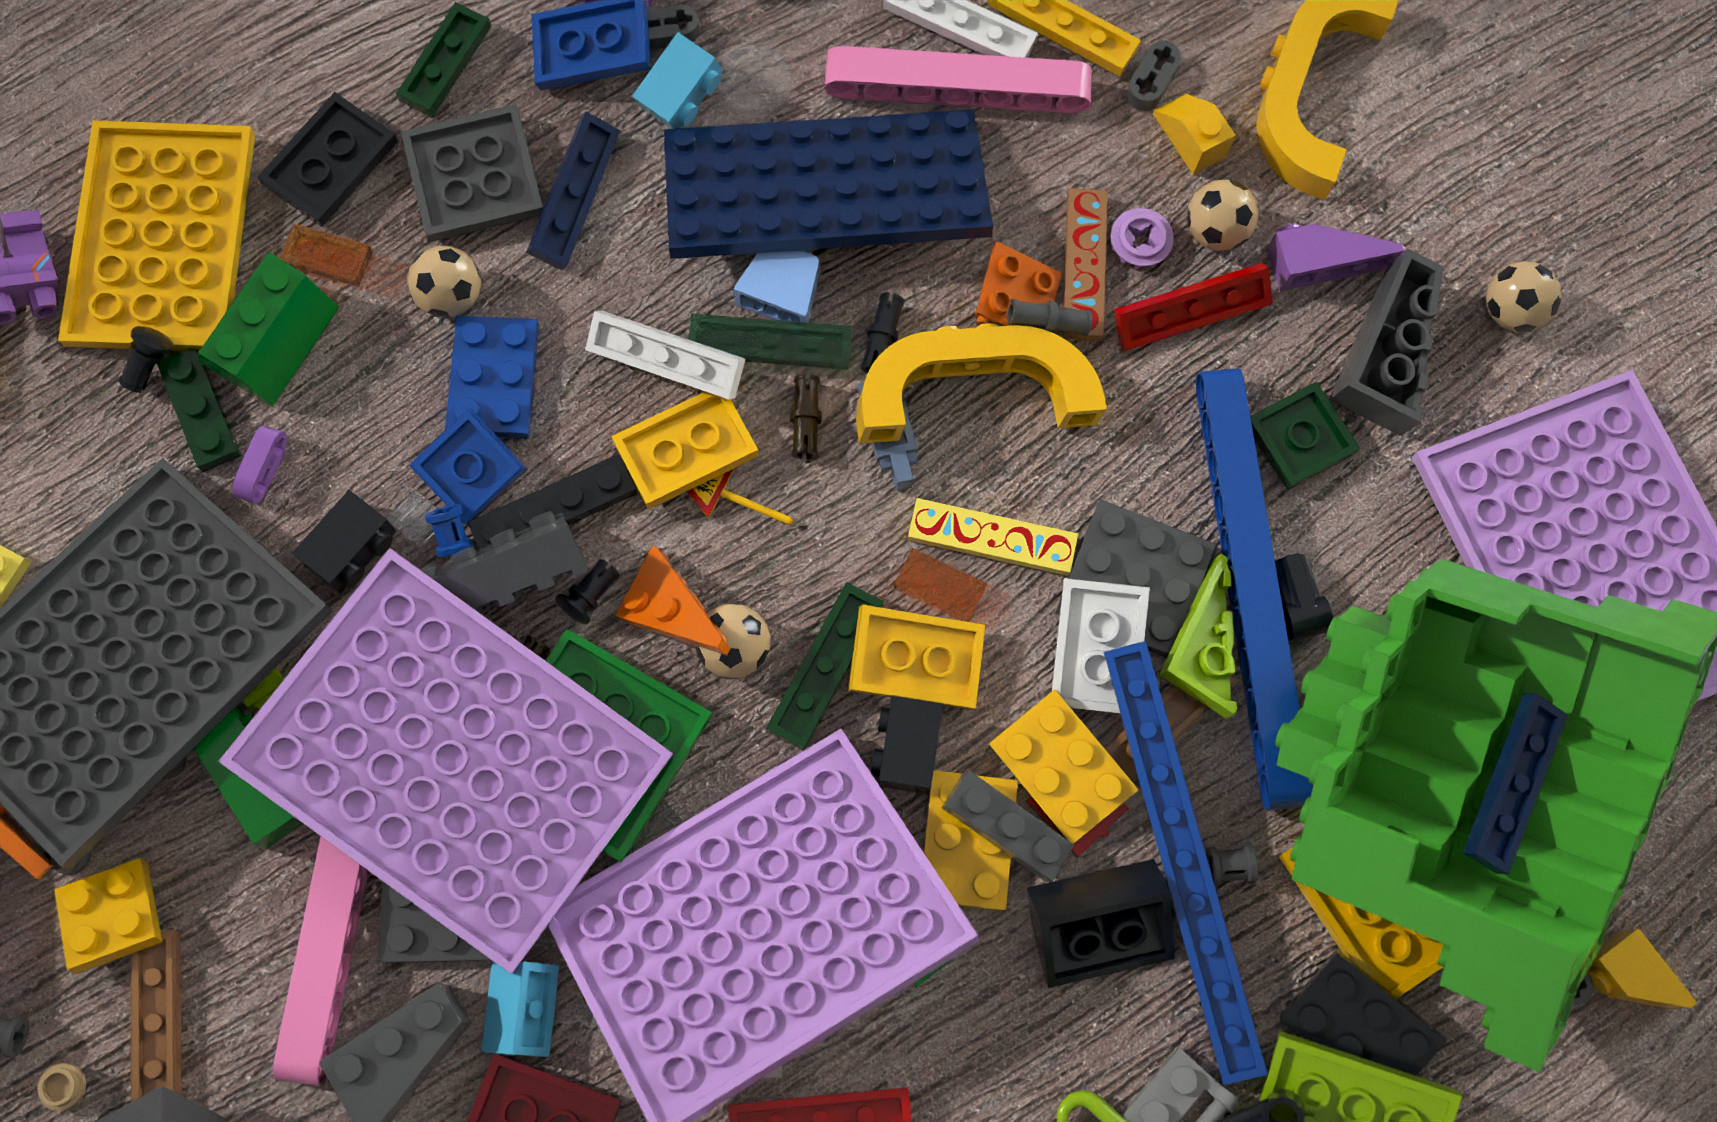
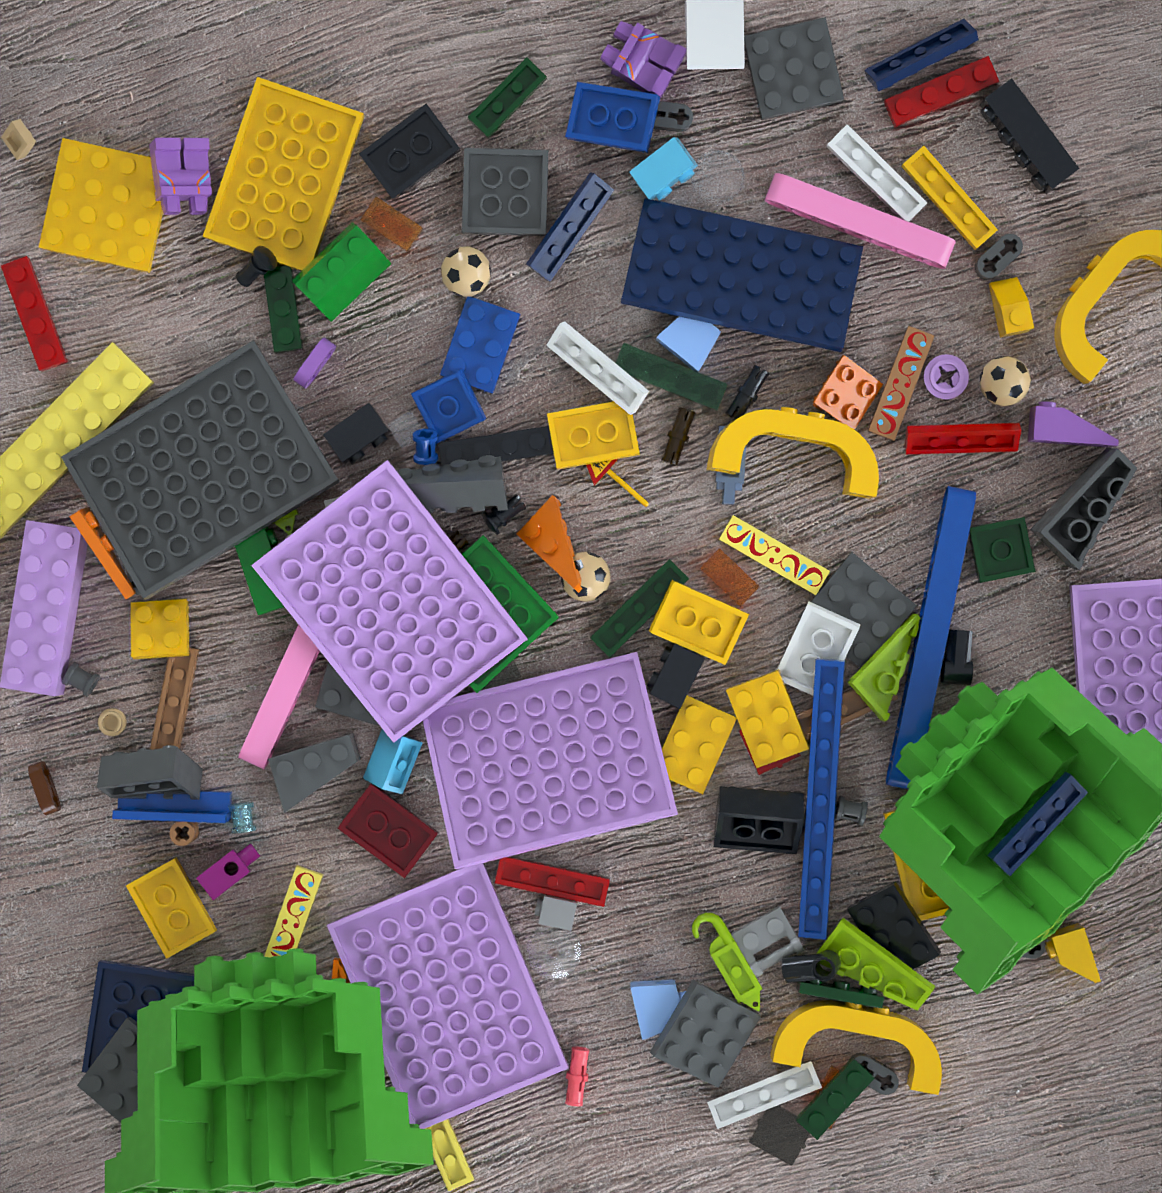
camera: 25 degrees right, 15 degrees up
(1007, 826) = (720, 745): dark grey plate -> none
(1049, 317) = (860, 420): dark grey pin -> none

